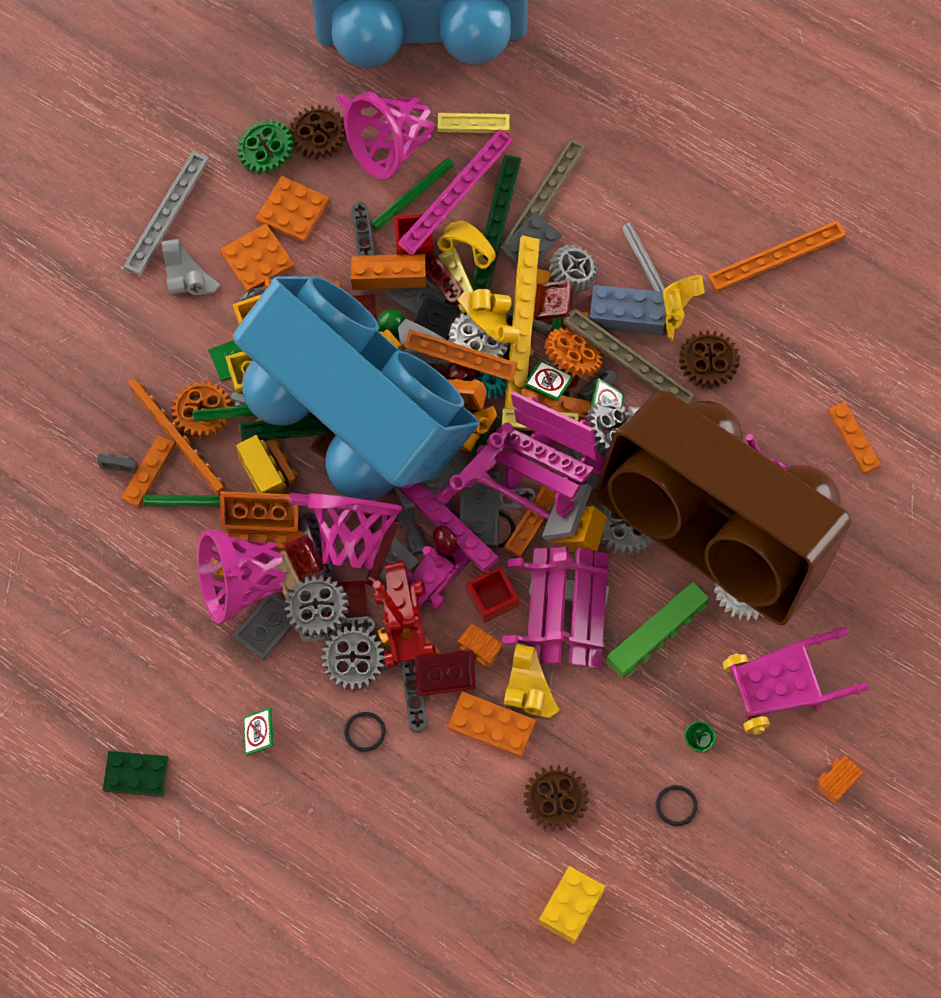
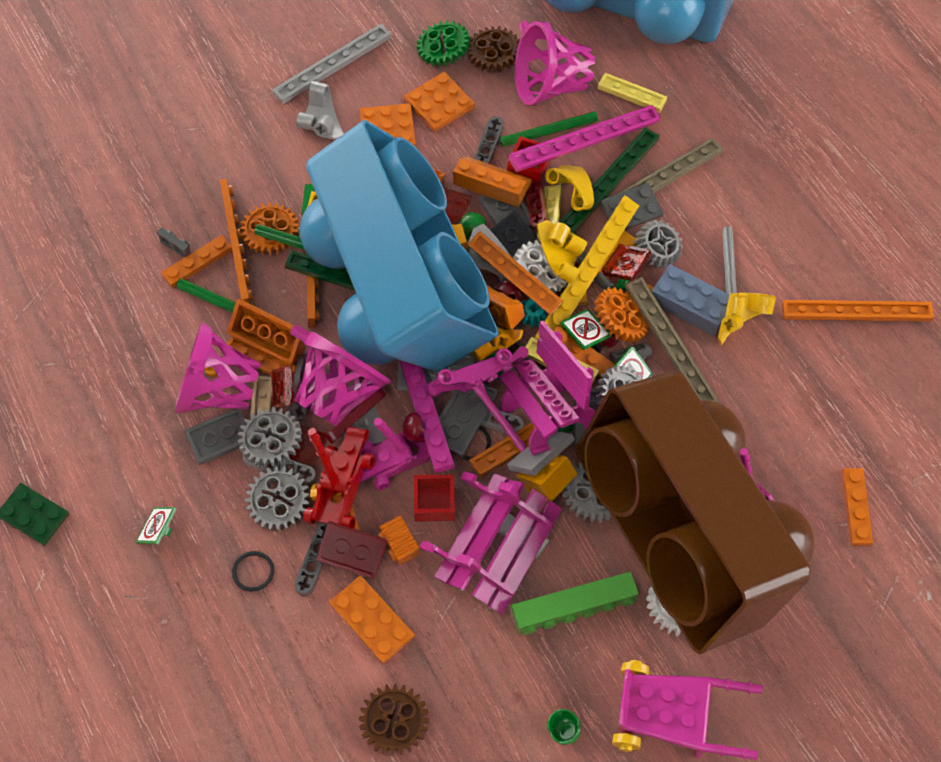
camera: 25 degrees right, 5 degrees down
(260, 466) = (289, 294): yellow brick -> none
(414, 537) = (394, 416): dark grey piece -> none
(528, 685) = (425, 598): yellow panel -> none
(691, 359) = (765, 381): reddish brown gear -> none

